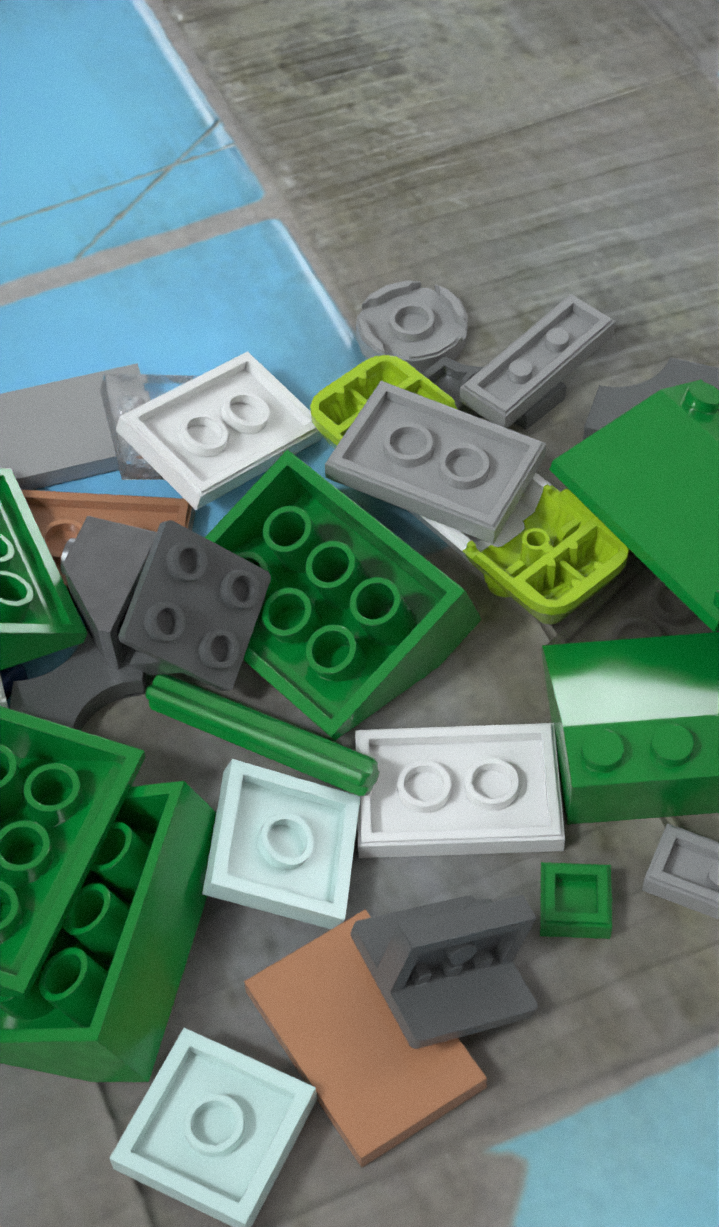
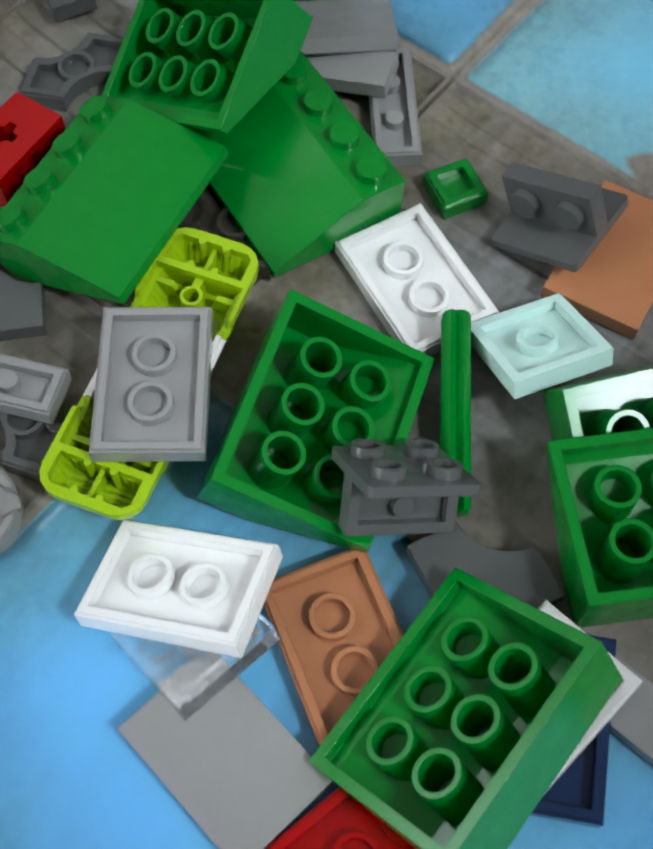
camera: 120 degrees left, 10 degrees up
(102, 578) = (399, 574): flat silver slope -> none

